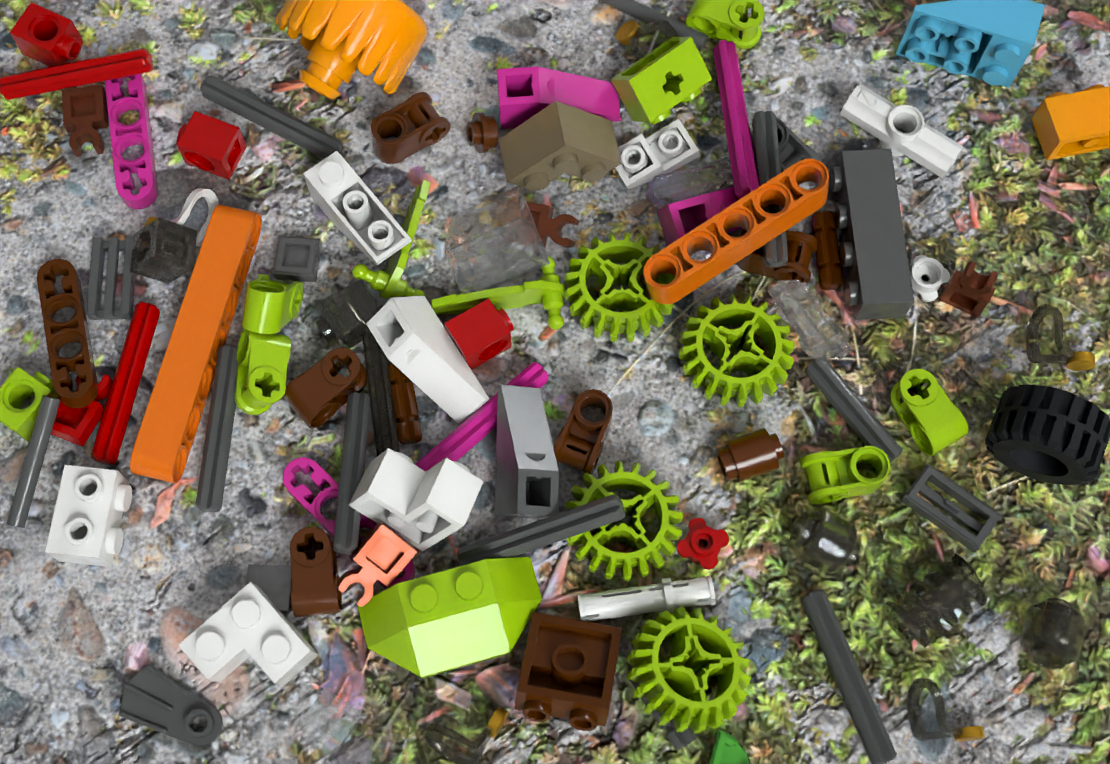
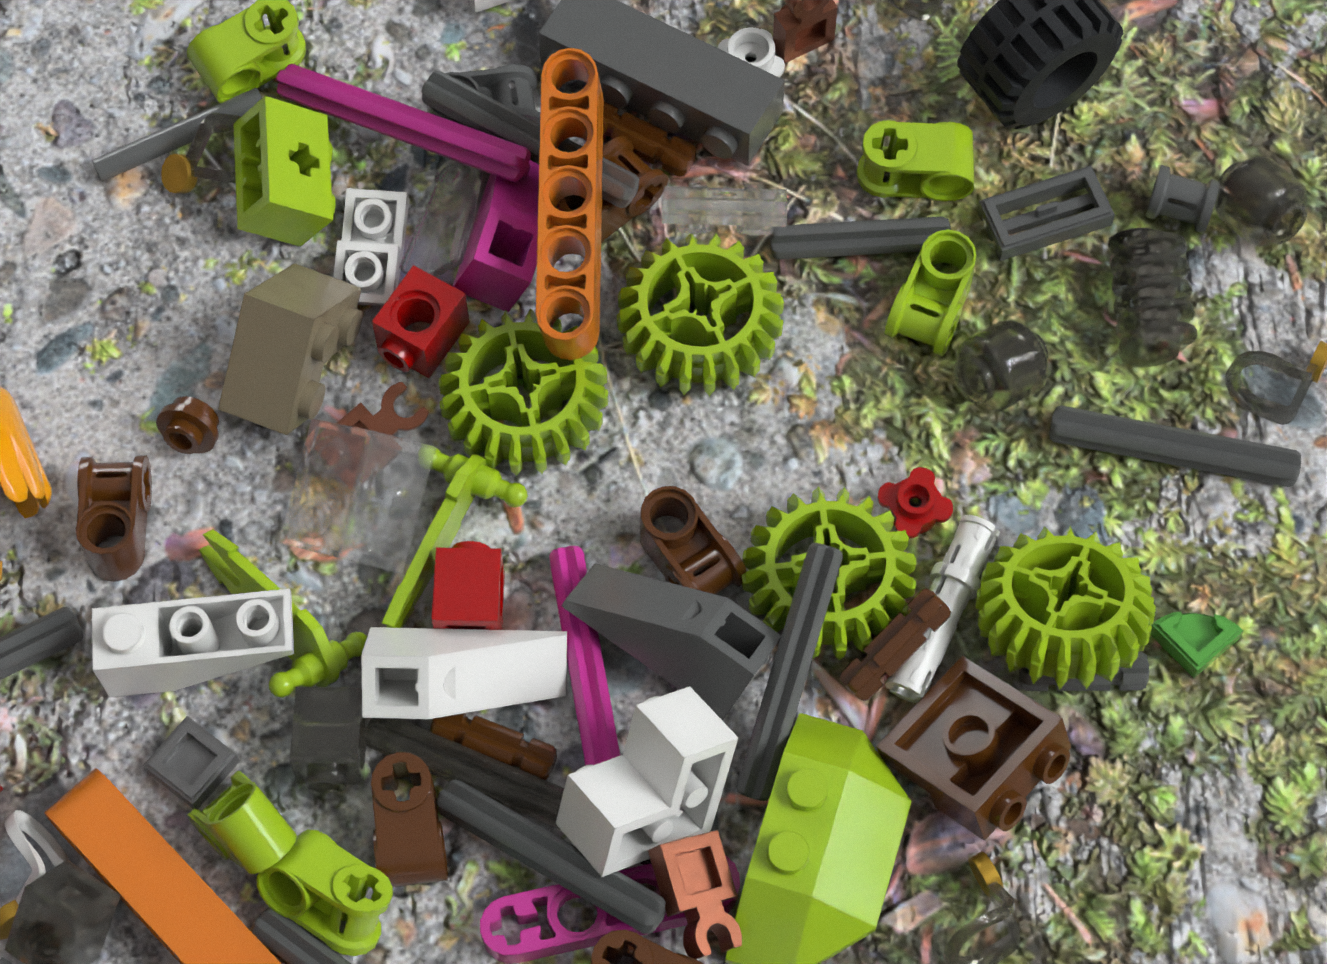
camera: 55 degrees left, 5 degrees down
(531, 89) = (198, 318): dark pink slope -> none
(599, 584) = (895, 644): none -> reddish brown axle
(632, 193) = (420, 299): none -> red brick
(749, 455) = (842, 382): reddish brown brick -> none
(1018, 583) = (1182, 199): none -> dark grey bush

